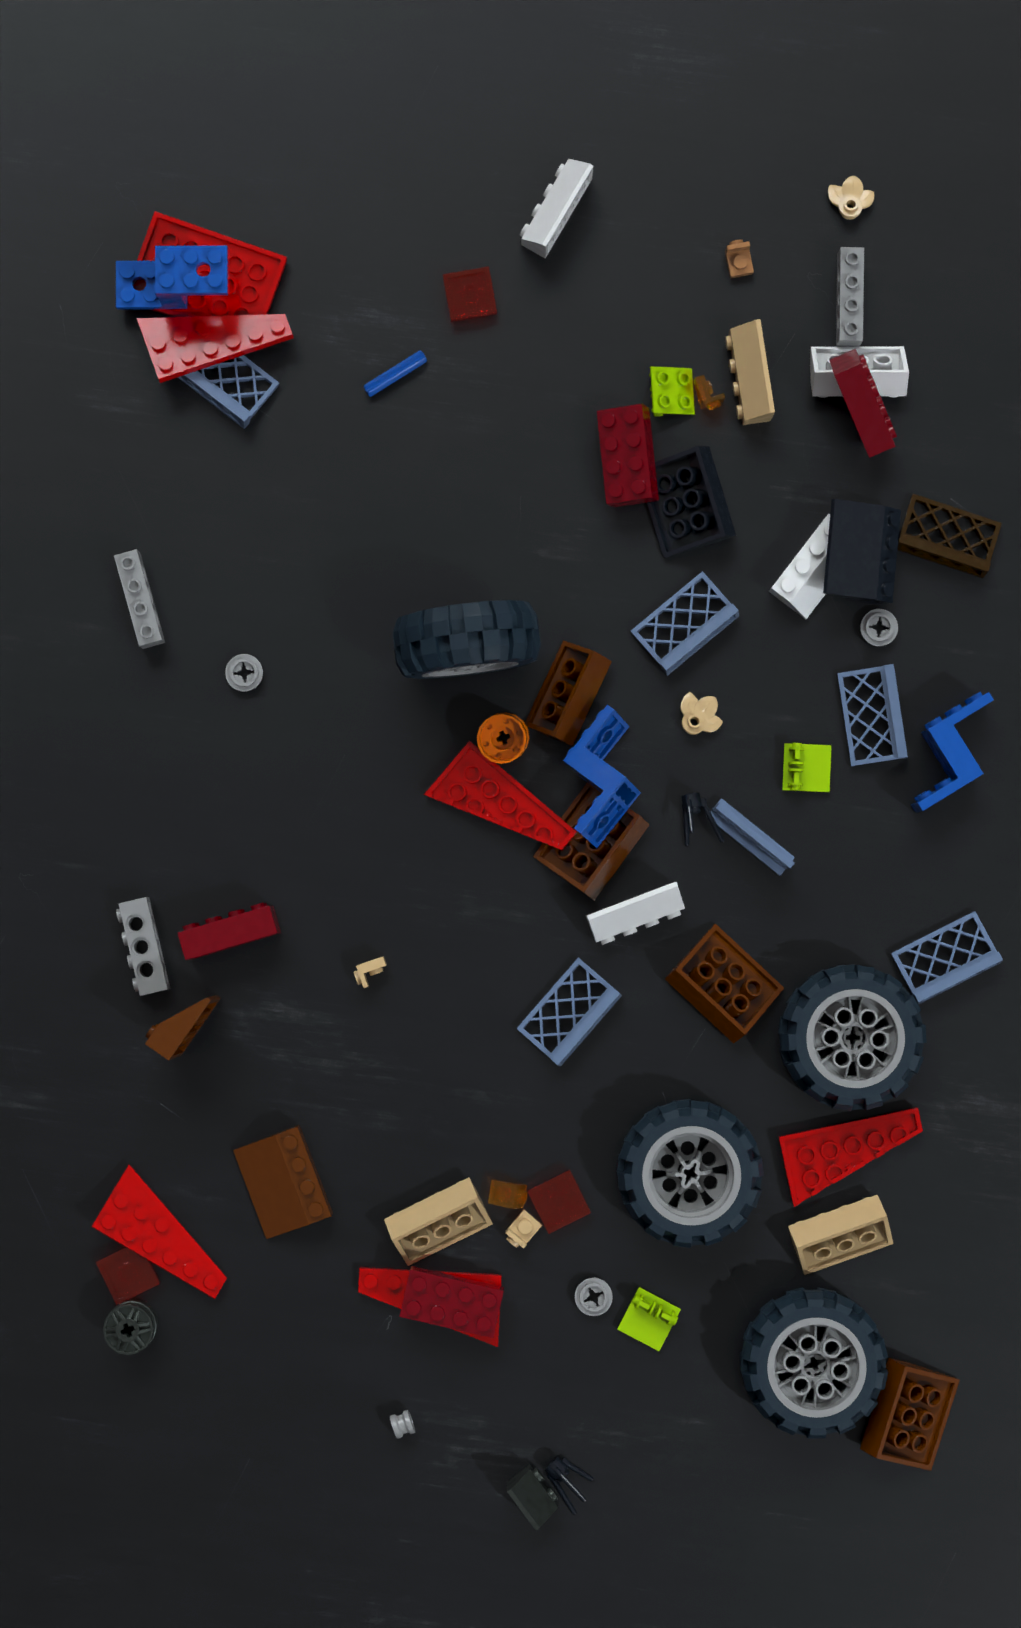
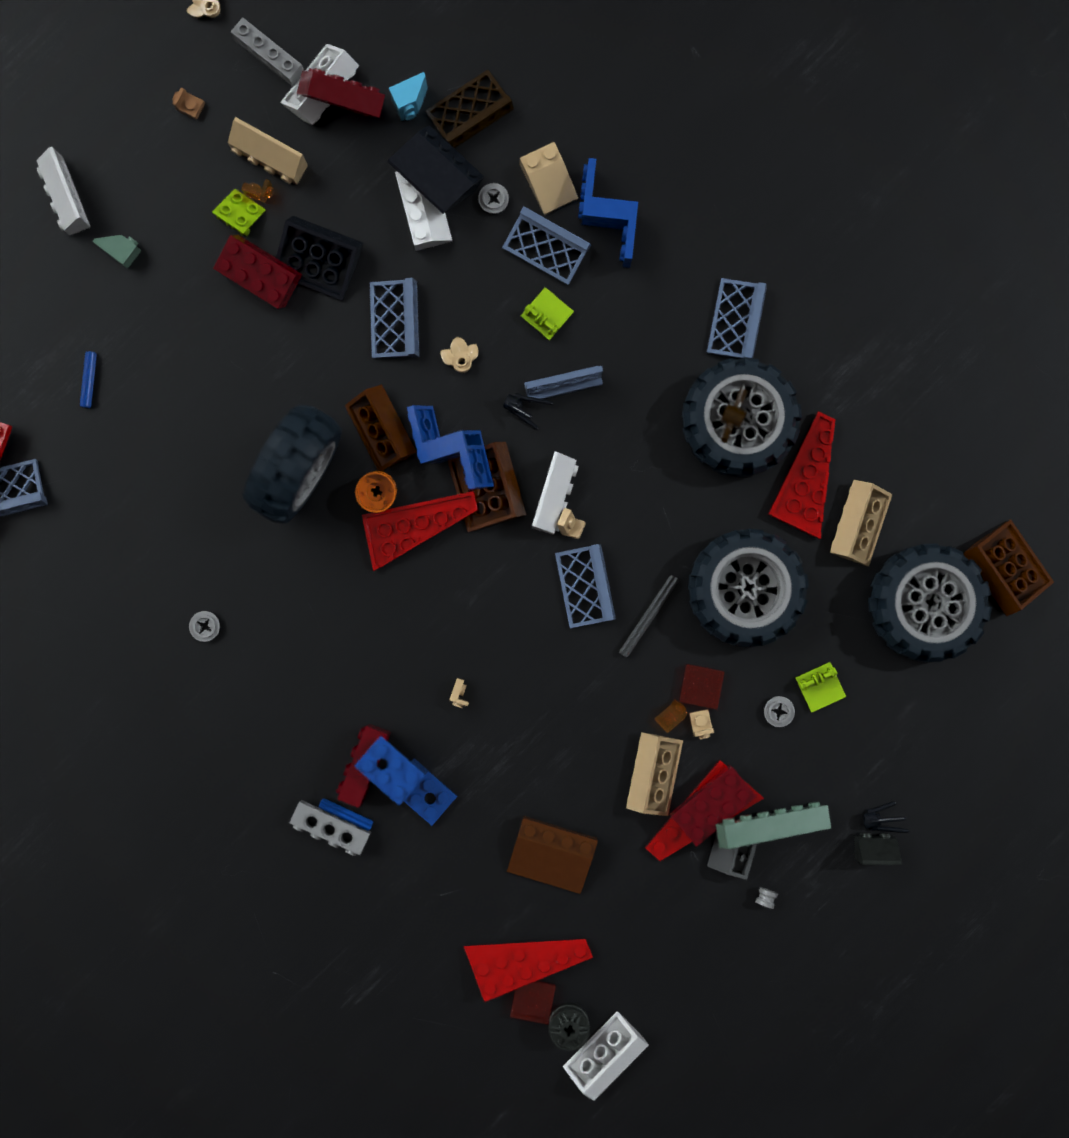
camera: 55 degrees left, 0 degrees up
(128, 1384) = (605, 1056): none -> white slope
(139, 599) = (103, 657): light grey brick -> none
(168, 951) = (345, 814): none -> blue axle
(175, 1034) = (401, 847): reddish brown slope -> none
(245, 985) = (405, 780): none -> blue bracket
(419, 1357) = (732, 861): none -> dark grey slope
(469, 294) = (74, 292): clear red plate -> none
(476, 1376) = (773, 826): none -> sand green brick
(546, 304) = (120, 248): none -> sand green slope
(588, 1096) = (648, 616): none -> dark grey axle
(616, 951) = (569, 525): none -> tan bracket
(724, 983) = (644, 472): reddish brown slope -> none
(844, 1029) = (733, 416): none -> dark brown piece
(913, 468) = (409, 96): none -> medium azure slope
(940, 666) = (548, 178): none -> tan slope

